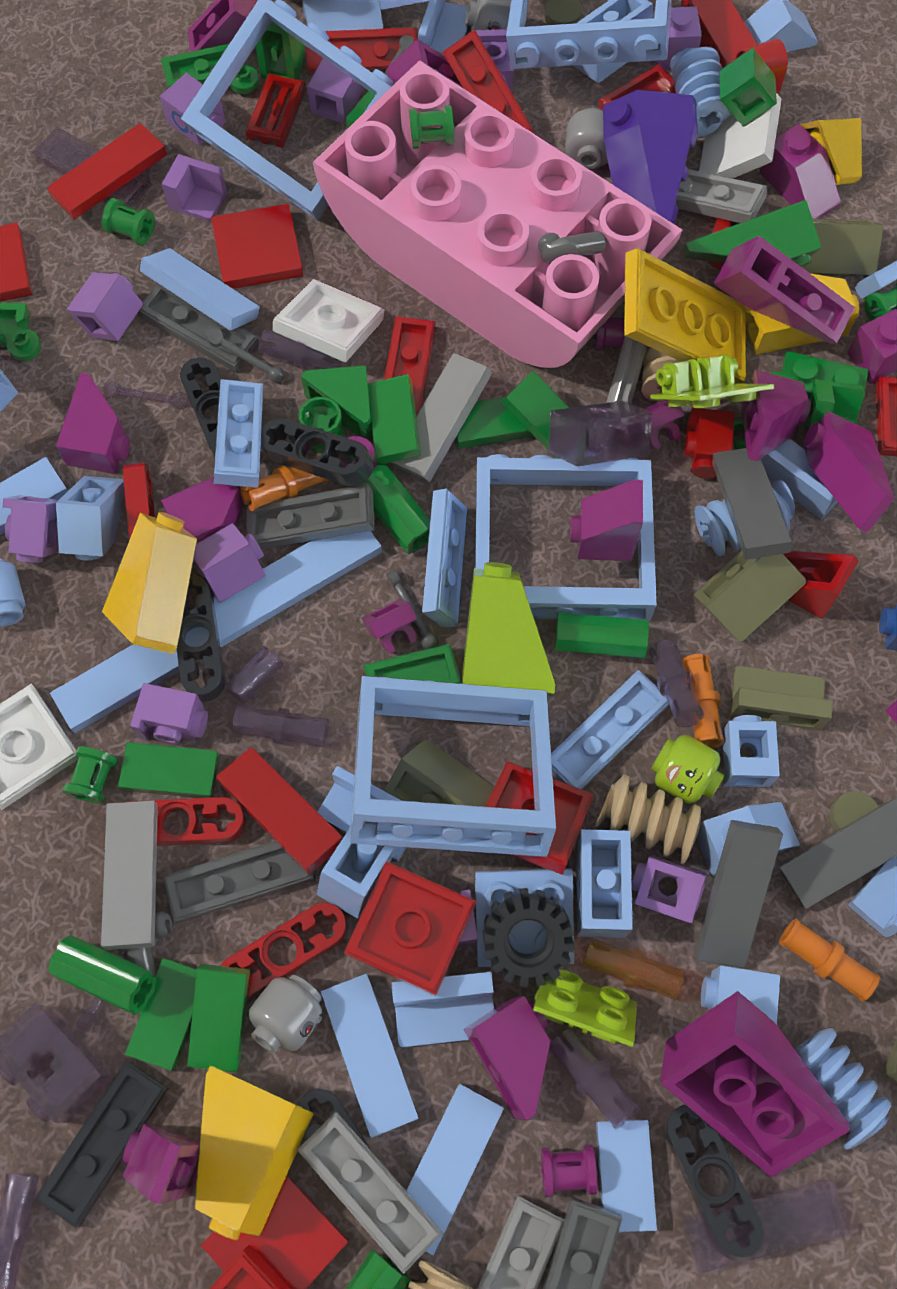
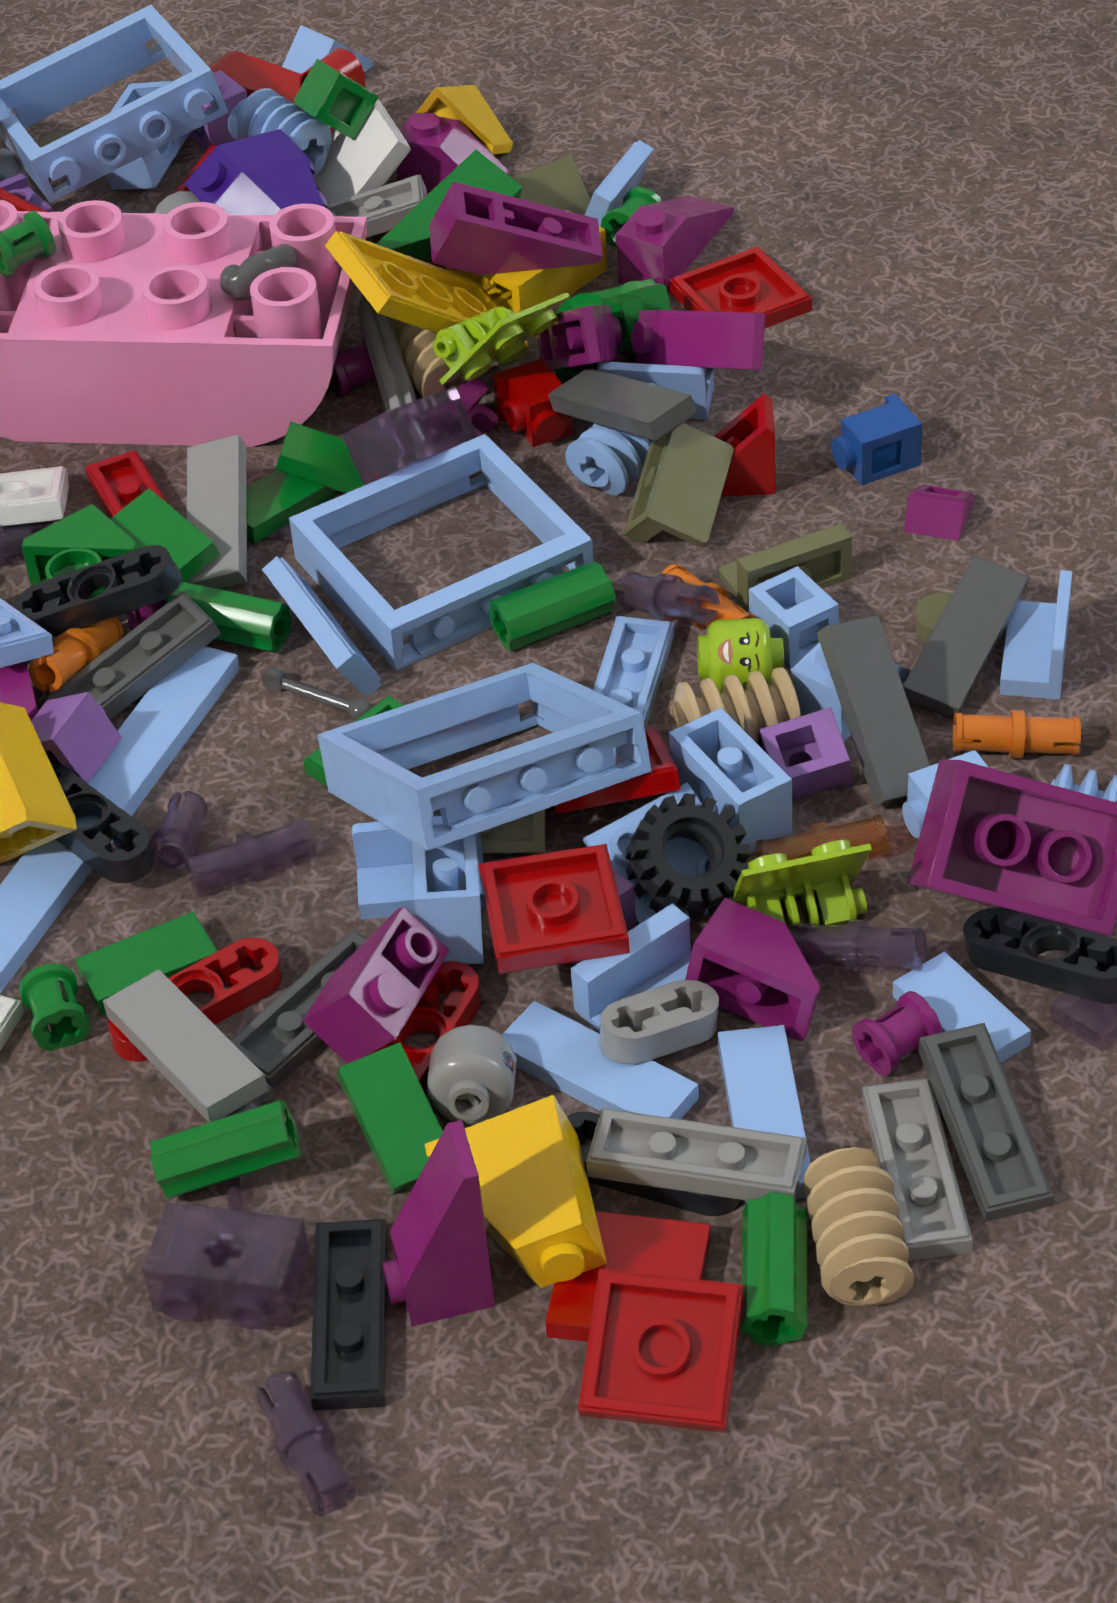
camera: 30 degrees left, 25 degrees down
(167, 1017) = (333, 1164): green tile -> none
(168, 715) = (109, 903): medium lavender brick -> none
(271, 908) = (376, 987): none -> magenta slope
(280, 810) = (307, 915): red tile -> none
(388, 620) = (305, 706): magenta tile -> none
(427, 1041) = (659, 1021): none -> light grey beam
(502, 634) = (442, 627): lime slope -> none
(609, 523) = (488, 476): magenta slope -> none

